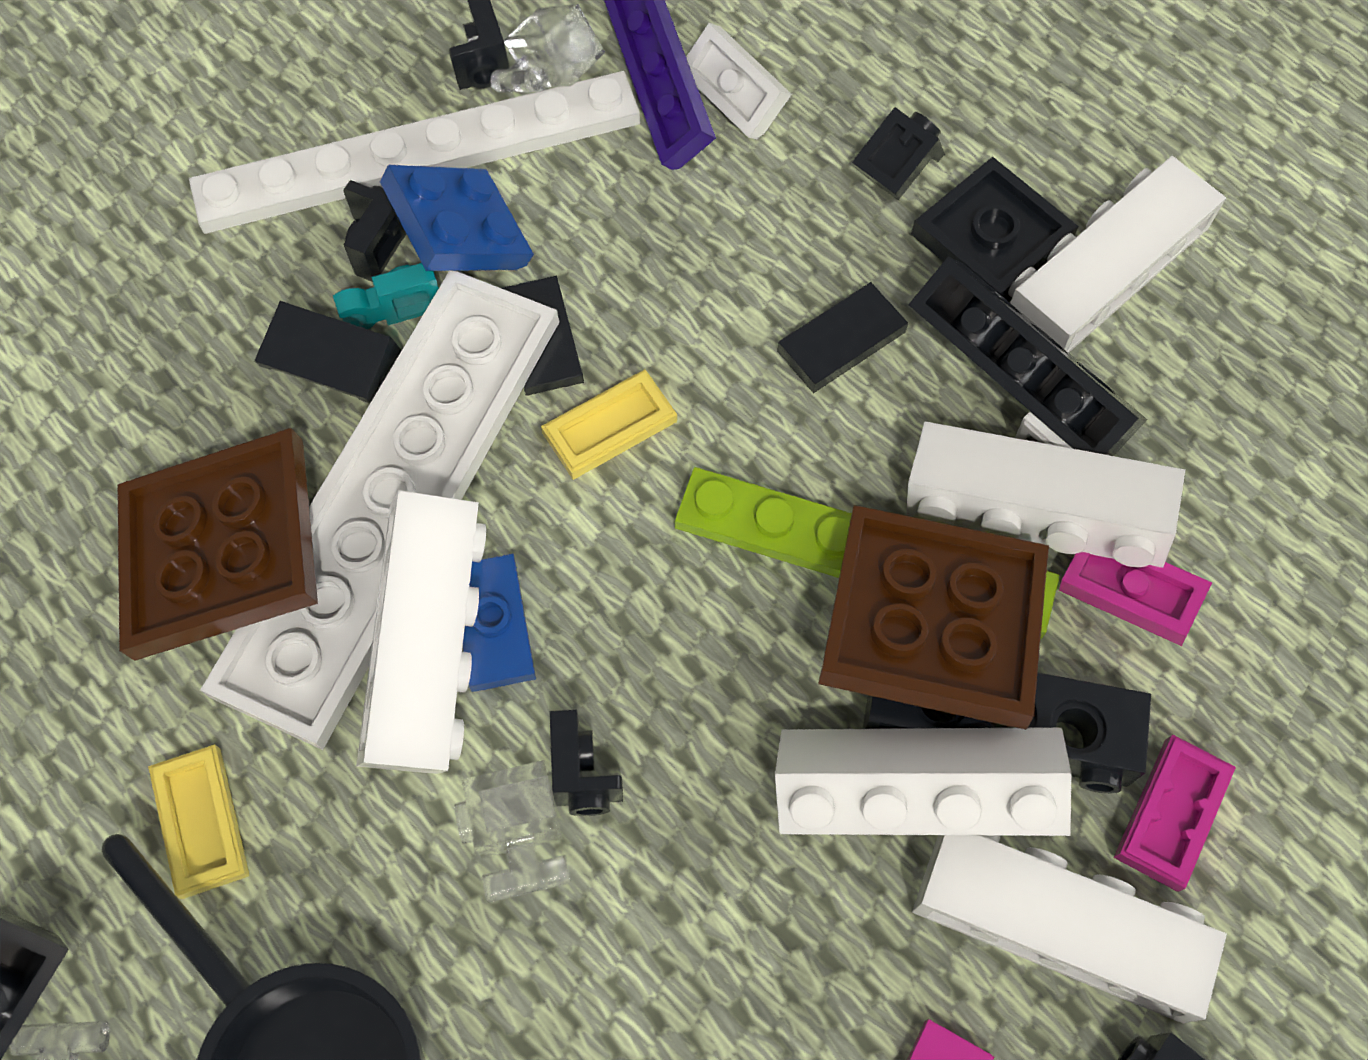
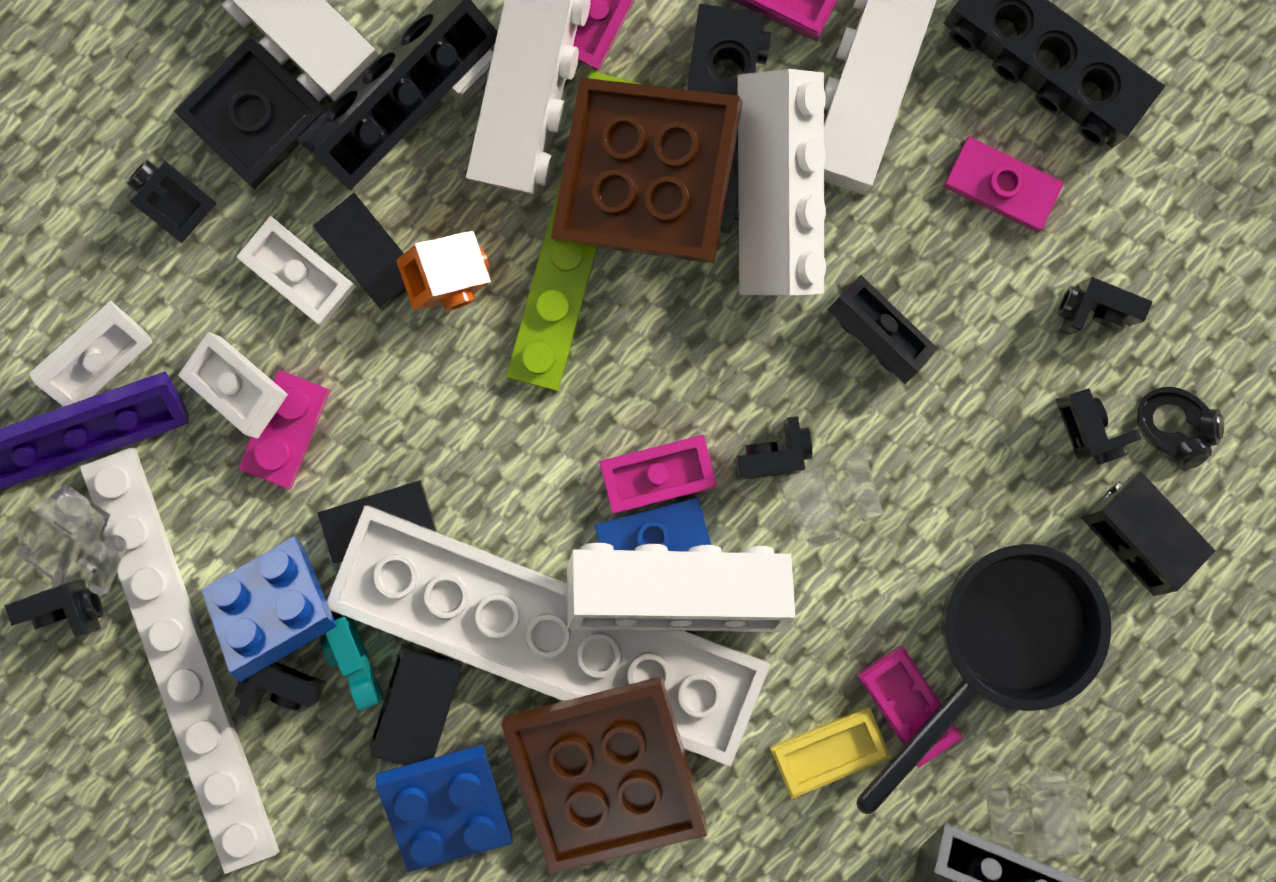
camera: 95 degrees left, 20 degrees up
(212, 378) = (444, 808): none -> blue plate
(245, 920) = (904, 698): none -> dark pink plate
(566, 629) = (658, 474): none -> dark pink plate
(609, 424) = (464, 453): light yellow tile -> none
(649, 251) = (285, 440): none -> dark pink plate
(697, 197) = (233, 385): none -> white plate
(731, 917) = (882, 329): none -> black plate
(816, 403) = (444, 272): none -> brick
(819, 265) = (296, 271): none -> white plate

